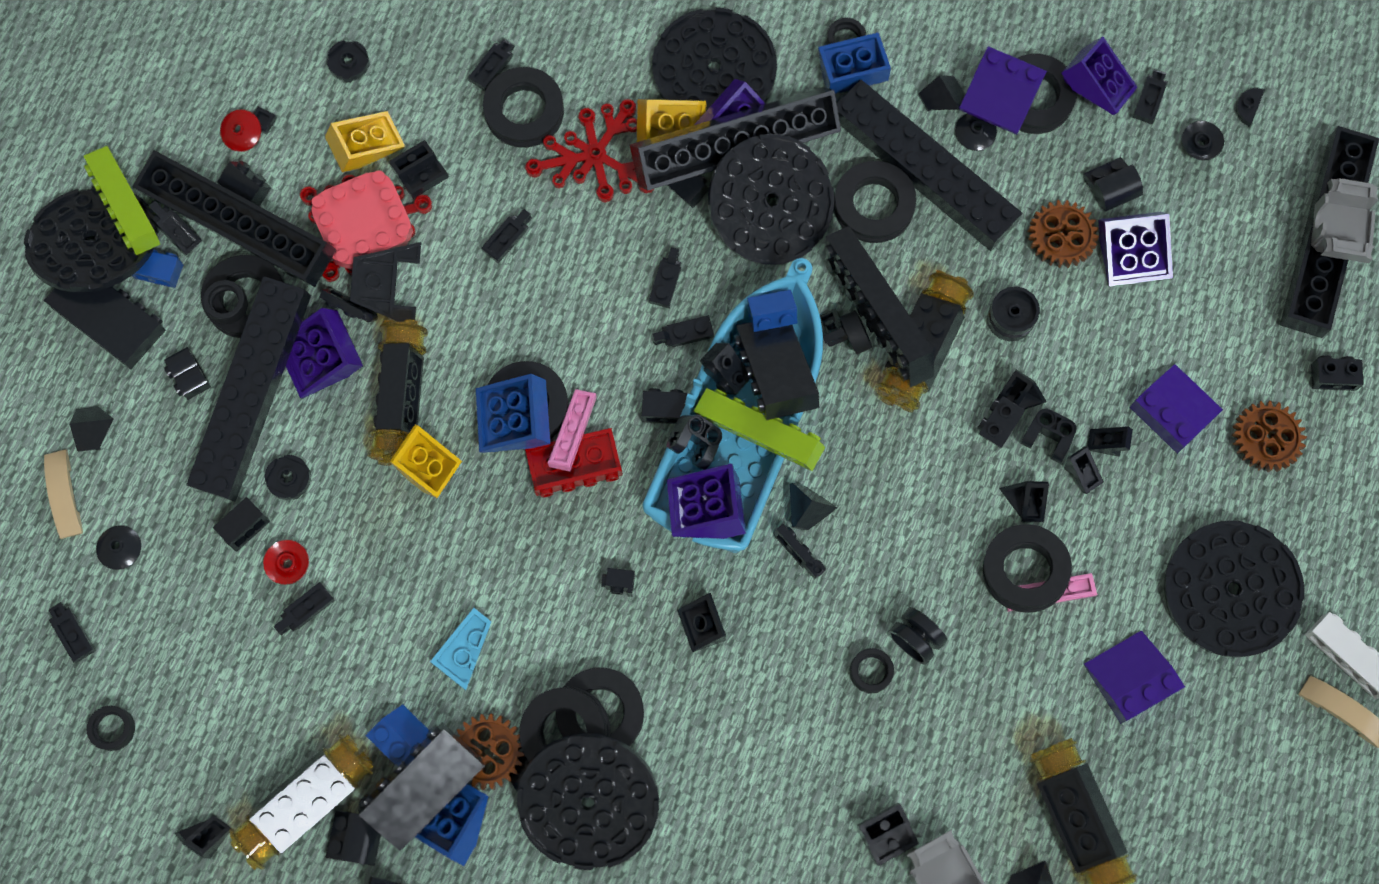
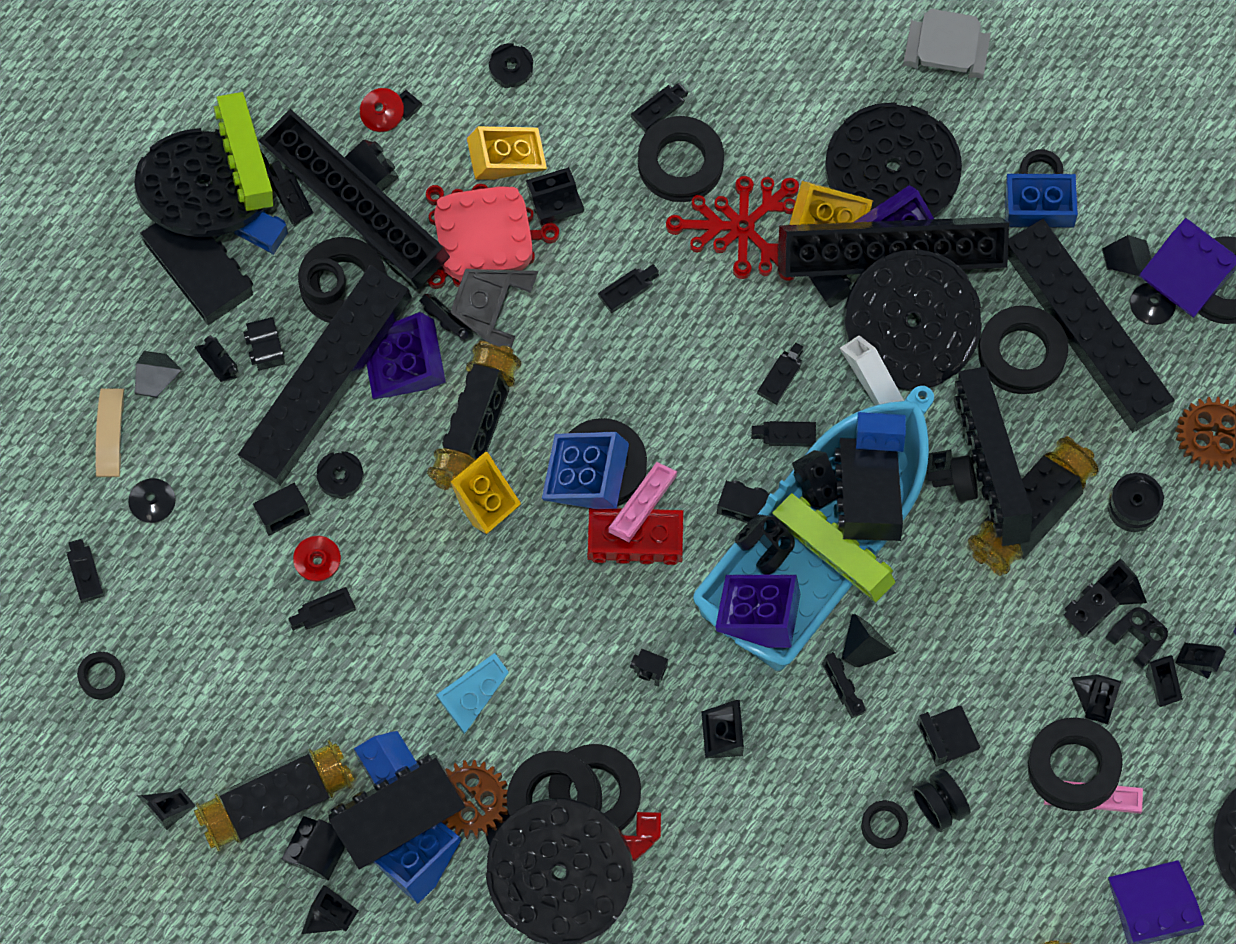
camera: 15 degrees right, 5 degrees down
(150, 404) = (222, 367): none -> black hinge
(658, 738) = (647, 833): none -> red tile
(747, 257) = (871, 371): none -> white slope
(905, 571) = (948, 735): none -> black bracket

